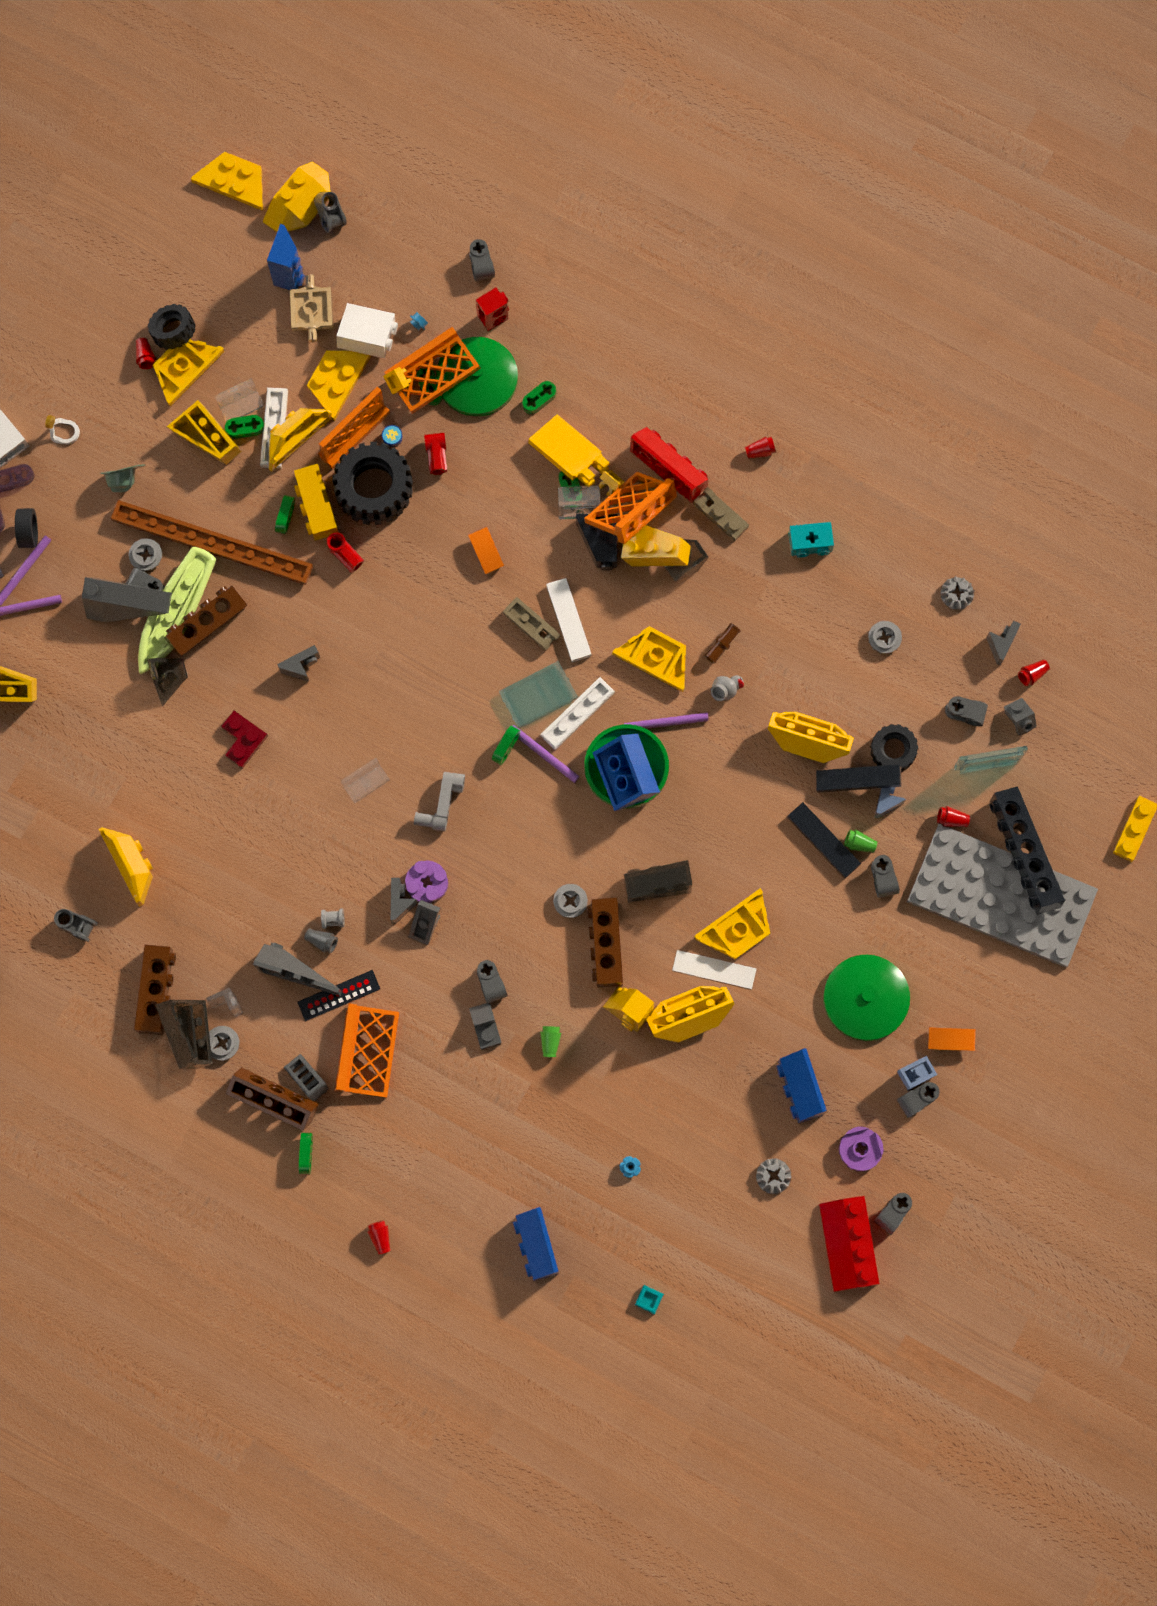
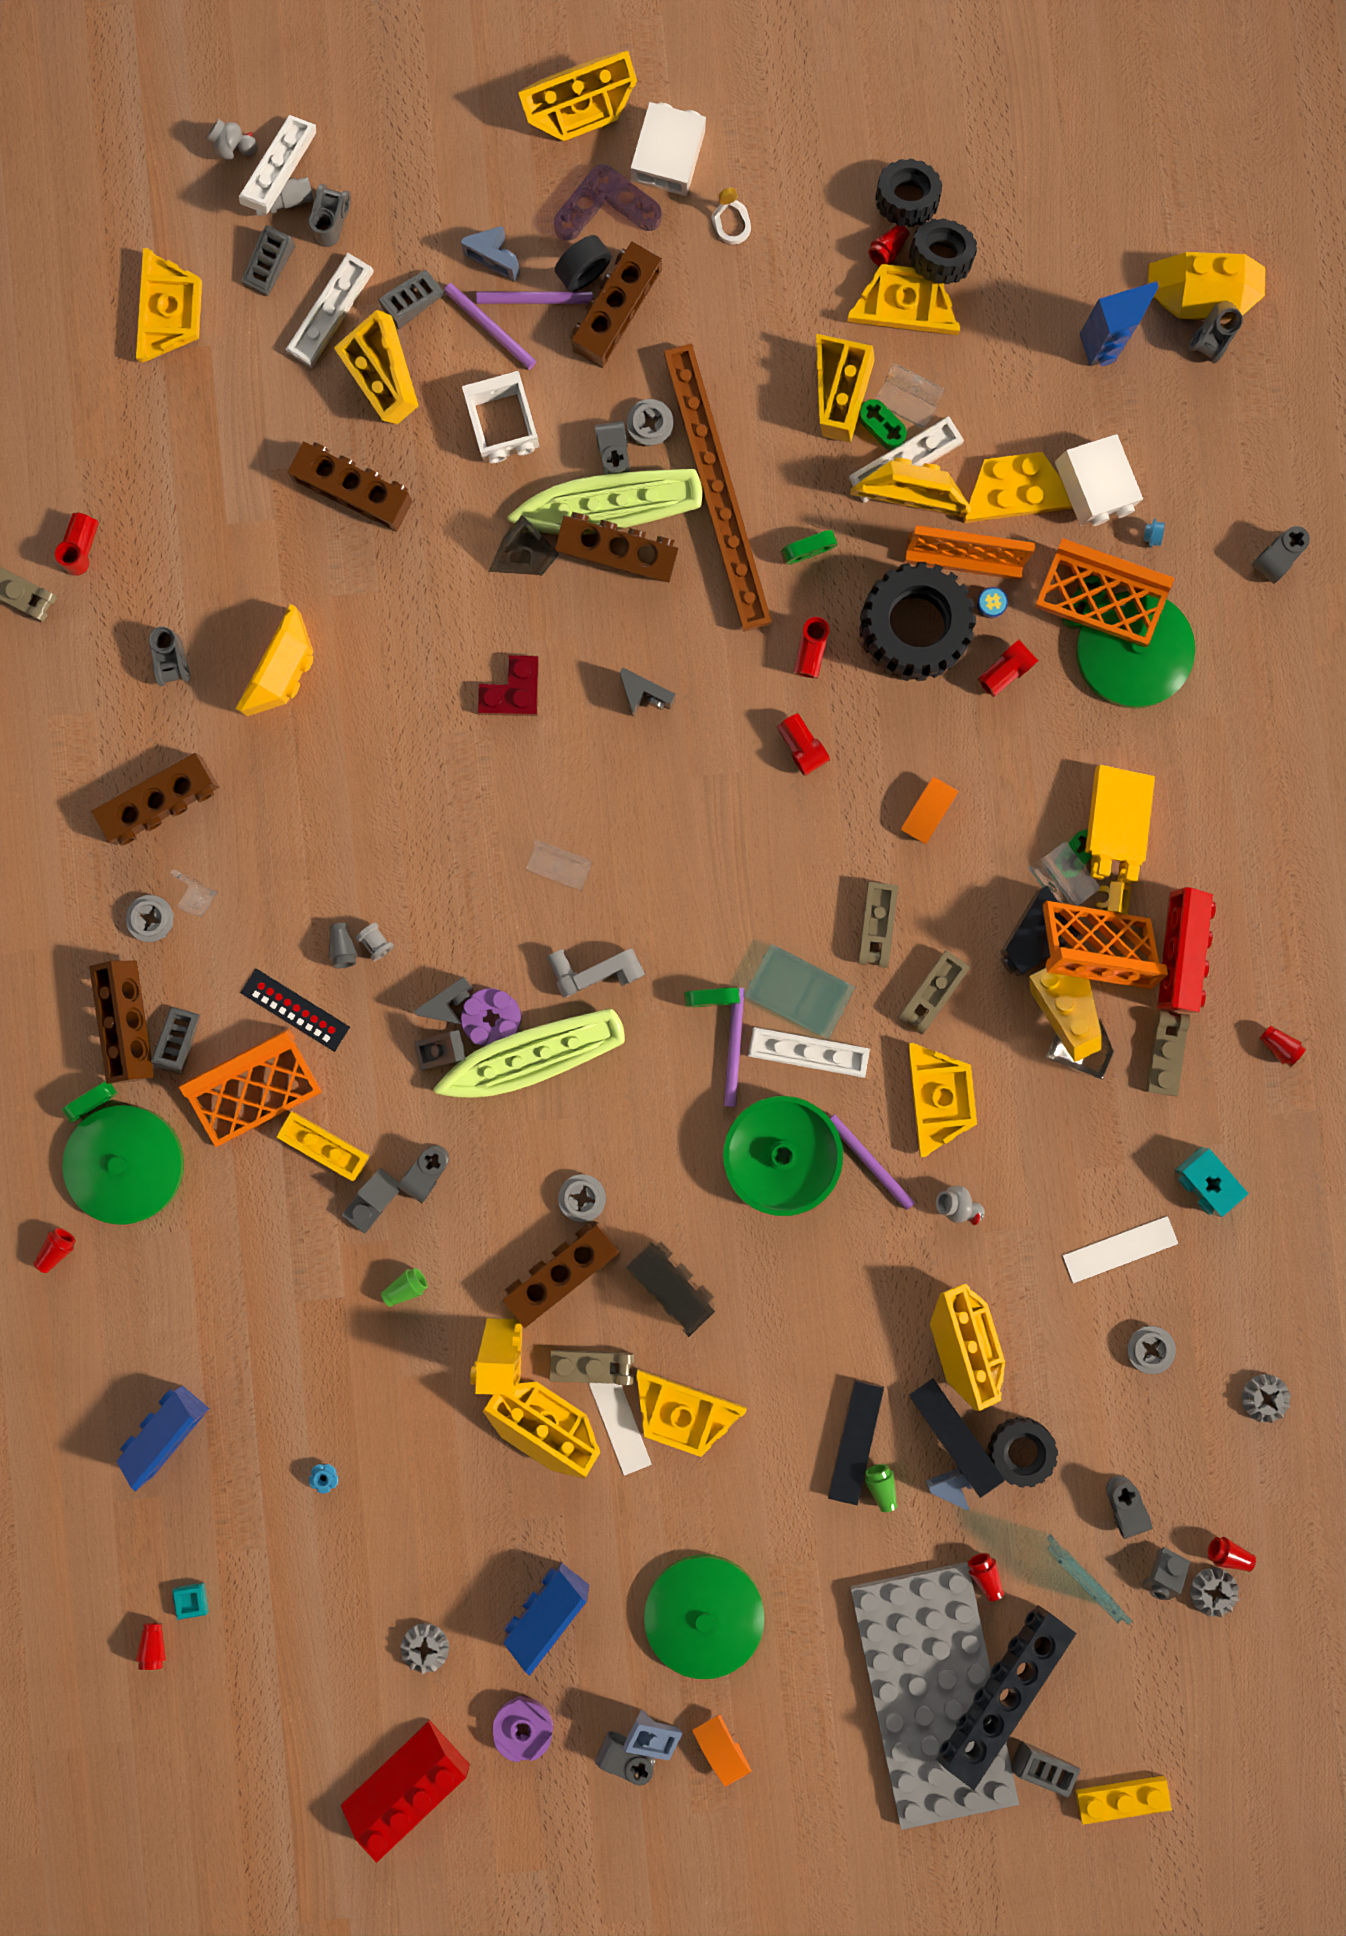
camera: 55 degrees right, 10 degrees up
(47, 760) = (314, 457): none -> reddish brown brick
(51, 497) = (600, 345): none -> reddish brown brick
(59, 629) = (492, 390): none -> white window
(118, 601) = (571, 432): dark grey wedge -> none
(121, 479) = (717, 327): sand green piece -> none
(130, 334) = (908, 173): none -> black tyre
(187, 1031) = (130, 872): clear smoke wedge -> none
(233, 178) = (1177, 191): yellow wing -> none
(281, 964) = (281, 920): dark grey wedge -> none
(311, 308) = (1081, 397): tan plate -> none
(315, 502) = (847, 572): yellow wedge -> none
(357, 1160) = (123, 1164): none -> green dish
(396, 380) = (1061, 560): yellow tile -> none
(402, 595) = (806, 751): none -> red piece
(432, 1031) = (323, 1146): none -> yellow plate
(466, 871) = (533, 1055): none -> yellowish green piece
(492, 308) = (1231, 609): red brick -> none
(536, 394) = (1162, 734): green beam -> none
(568, 620) = (913, 964): white tile -> none
(592, 618) = (934, 991): none -> dark tan plate
(626, 771) = (772, 1163): blue slope -> none
(661, 1341) = (151, 1647): none -> red cone
(673, 964) = (590, 1367): none -> dark tan plate
(722, 643) = (1010, 1163): reddish brown pin -> none
(816, 616) = (1120, 1249): none -> white sticker
(884, 881) = (855, 1547): dark grey piece -> none
(891, 1215) = (470, 1817): dark grey piece -> none
(1000, 645) = (1236, 1498): dark grey slope -> none
(1049, 706) = (1208, 1580): none -> light grey gear
(1076, 867) = (1027, 1760): none -> dark grey slope

